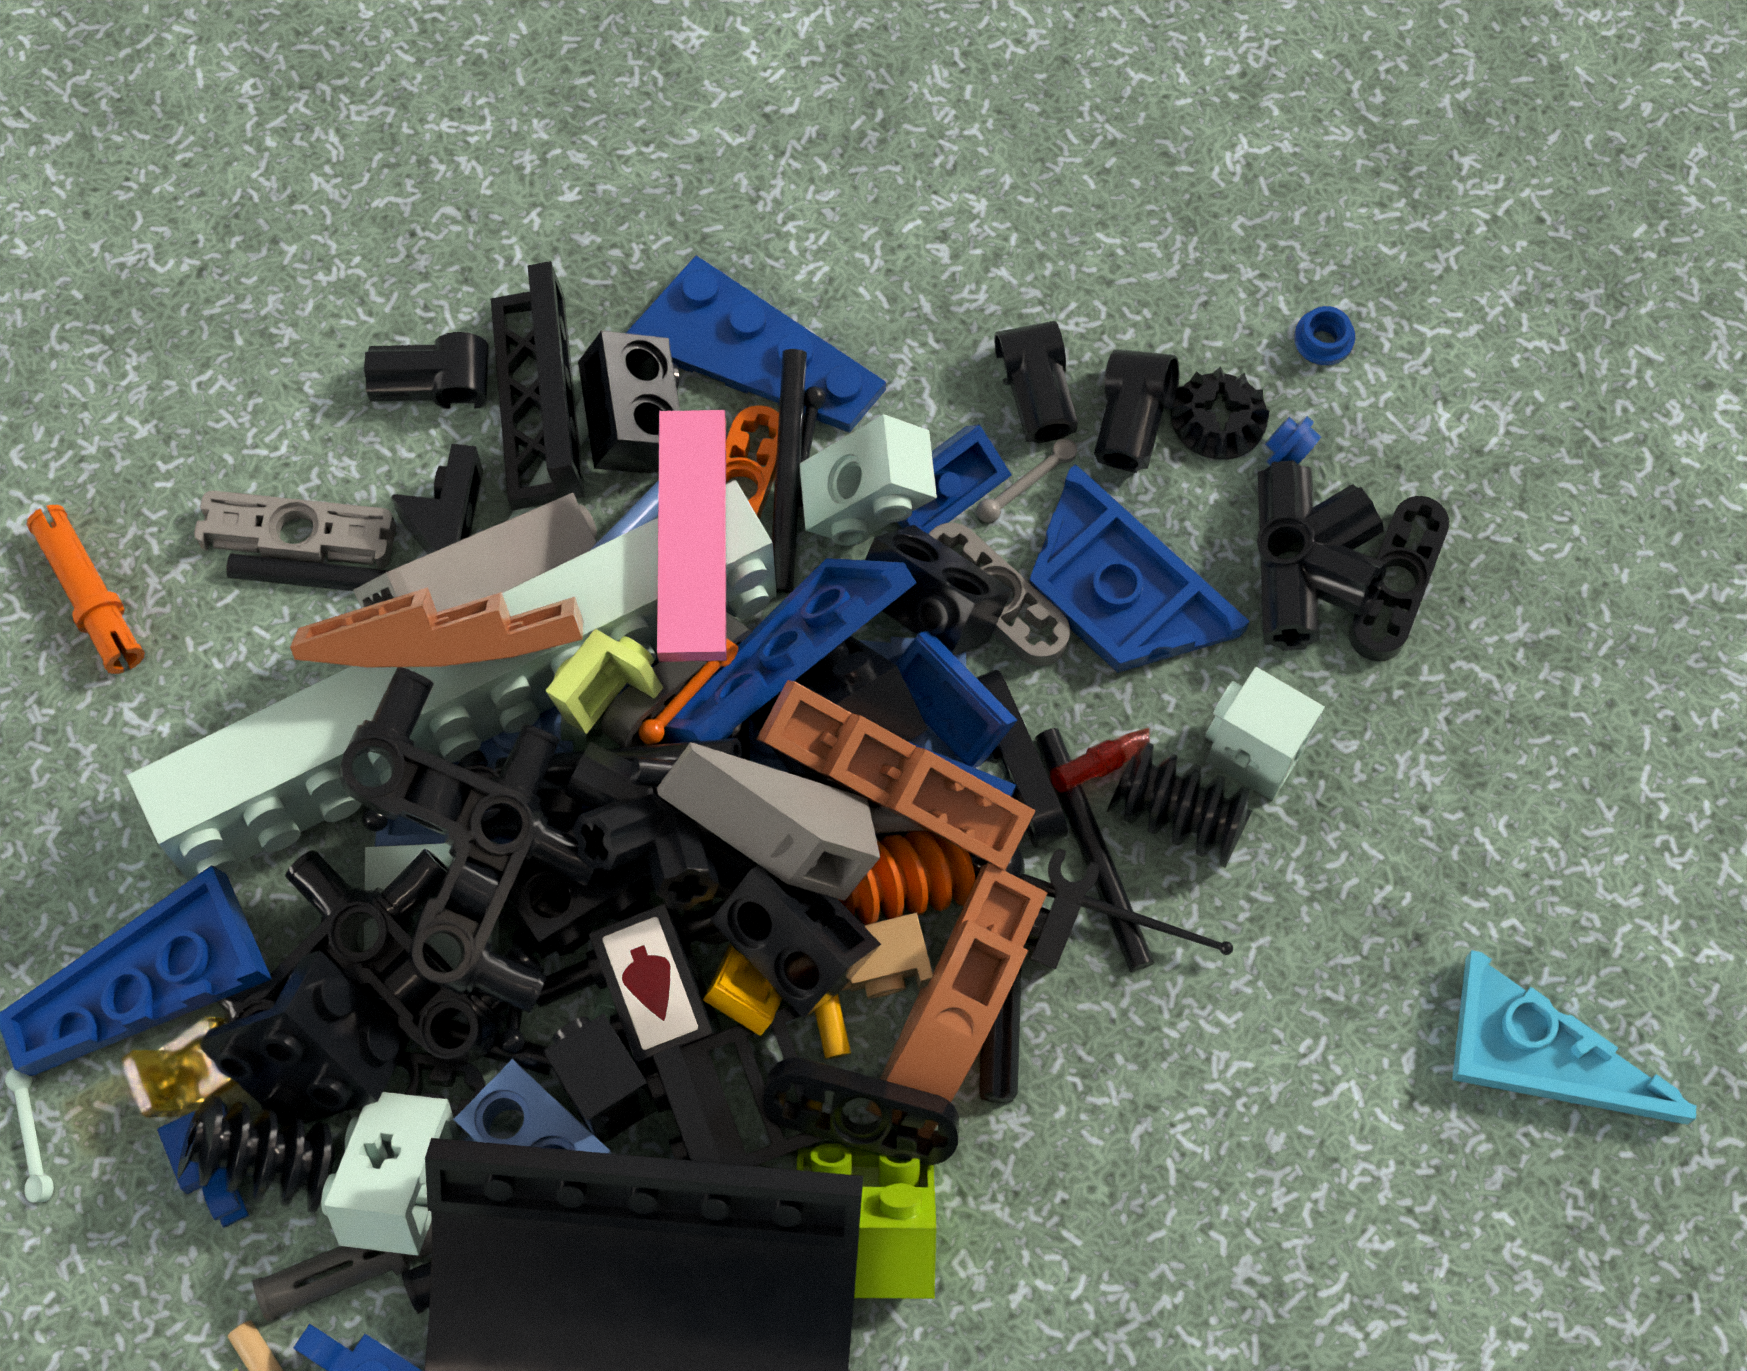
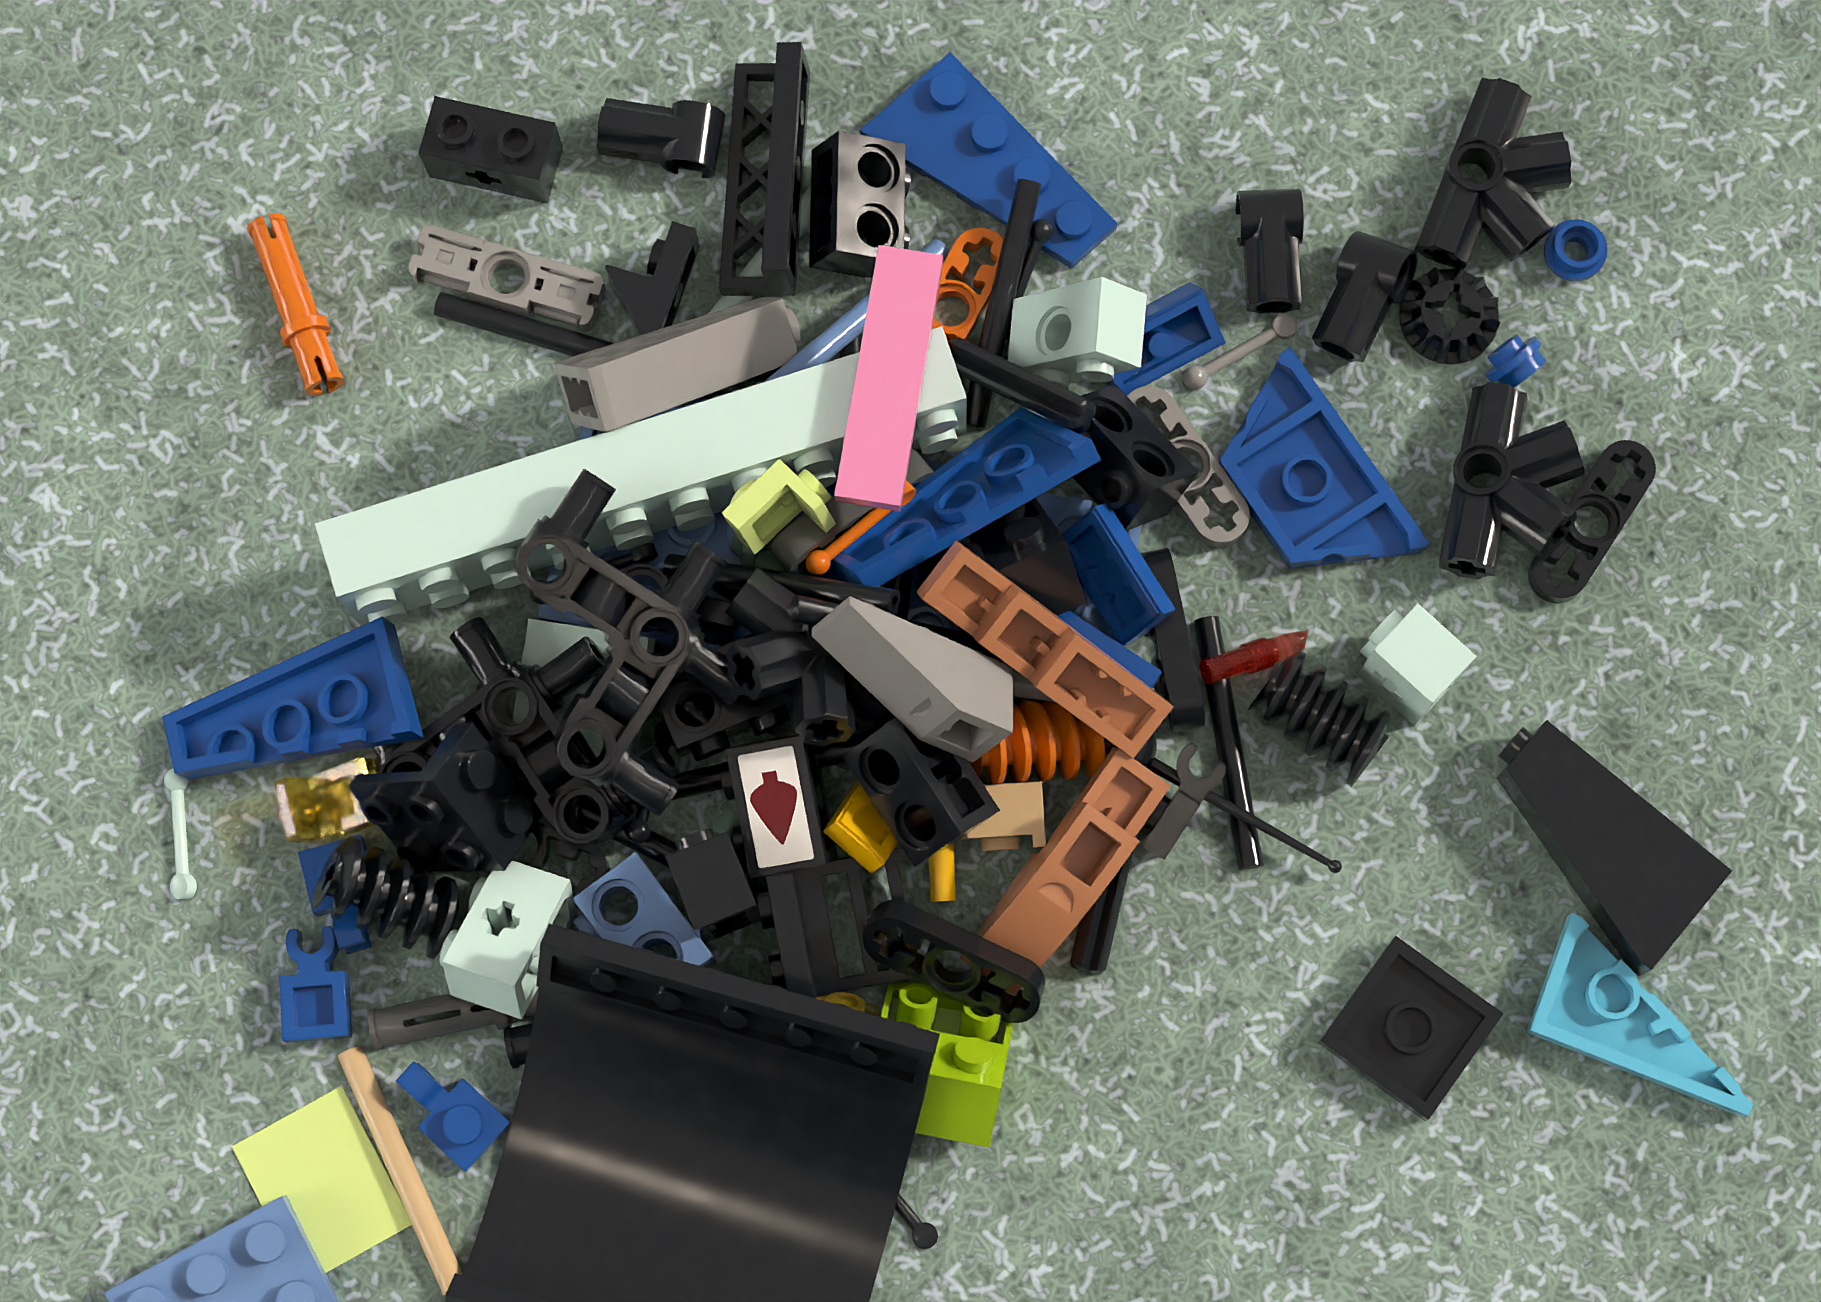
camera: 15 degrees right, 10 degrees up
(198, 1279) = (315, 1000): none -> blue plate
(261, 410) = (491, 149): none -> black brick
(413, 633) = (604, 438): nougat slope -> none
(830, 536) = (1022, 386): none -> black axle
(1250, 279) = (1513, 172): none -> black piece
(1337, 1096) = (1410, 1028): none -> black plate
(1493, 877) = (1613, 847): none -> black slope

